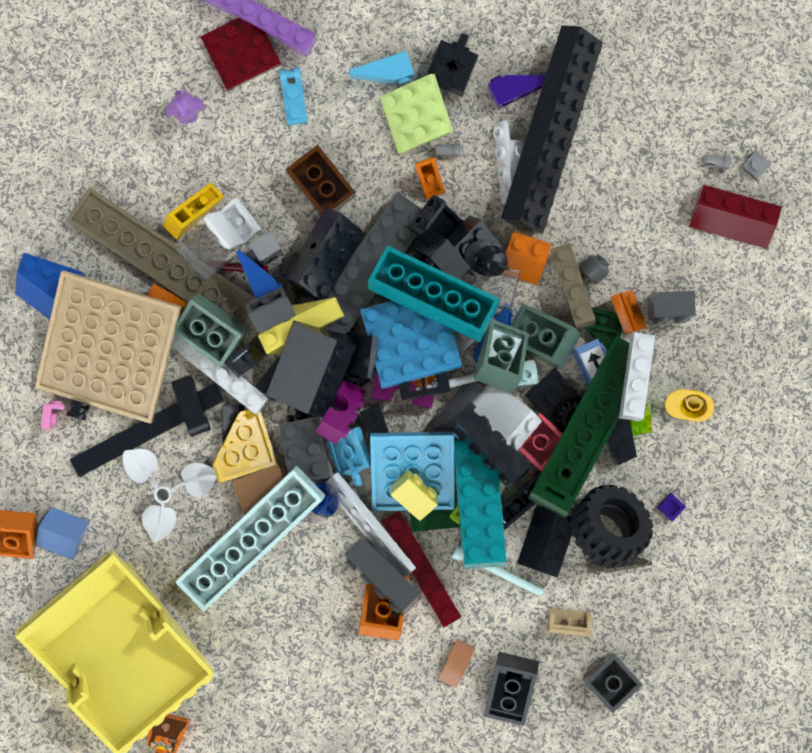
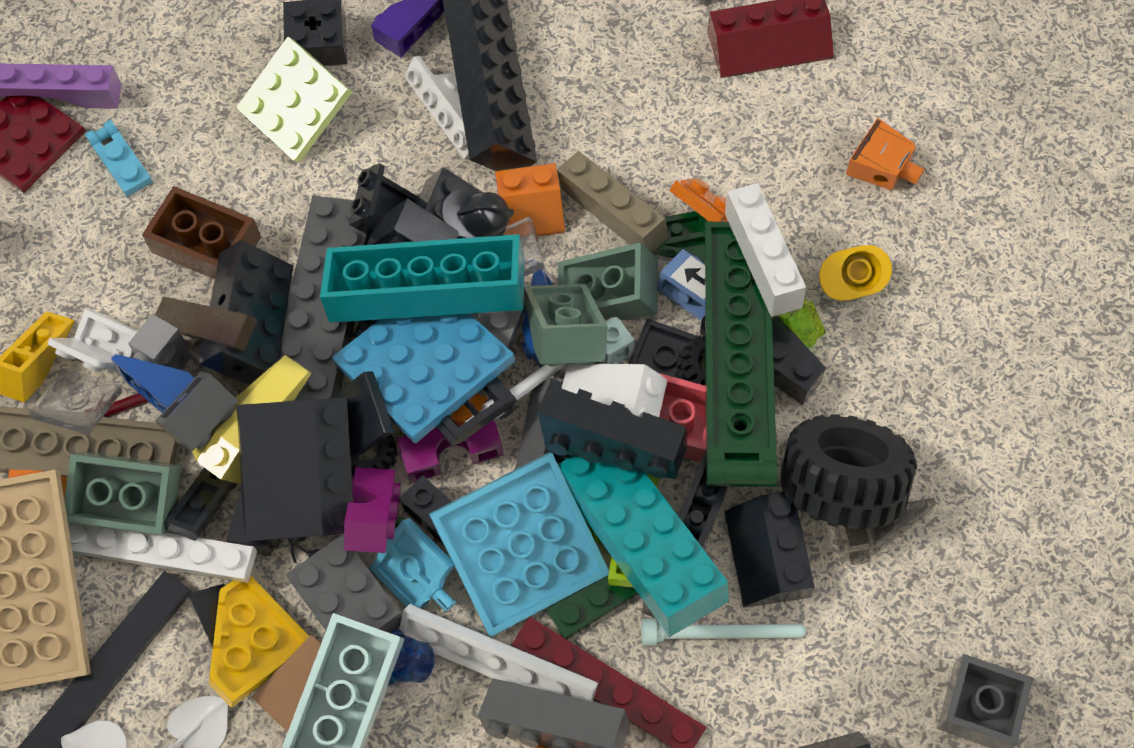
camera: 25 degrees left, 20 degrees down
(191, 405) = (139, 617): black beam -> none
(296, 254) = (208, 322): none -> dark brown tile
(388, 70) = (226, 74): medium azure slope -> none
(414, 495) = (539, 573): light yellow brick -> none
(429, 177) = (344, 159): orange slope -> none
(448, 150) = (359, 127): light grey pin -> none
(569, 622) = (870, 651): tan hinge -> none
(594, 269) = (631, 171): dark grey head -> none
(671, 306) = (759, 159): dark grey brick -> none
(671, 507) = (912, 420): dark purple tile -> none
(754, 337) = (884, 158): none -> orange torso

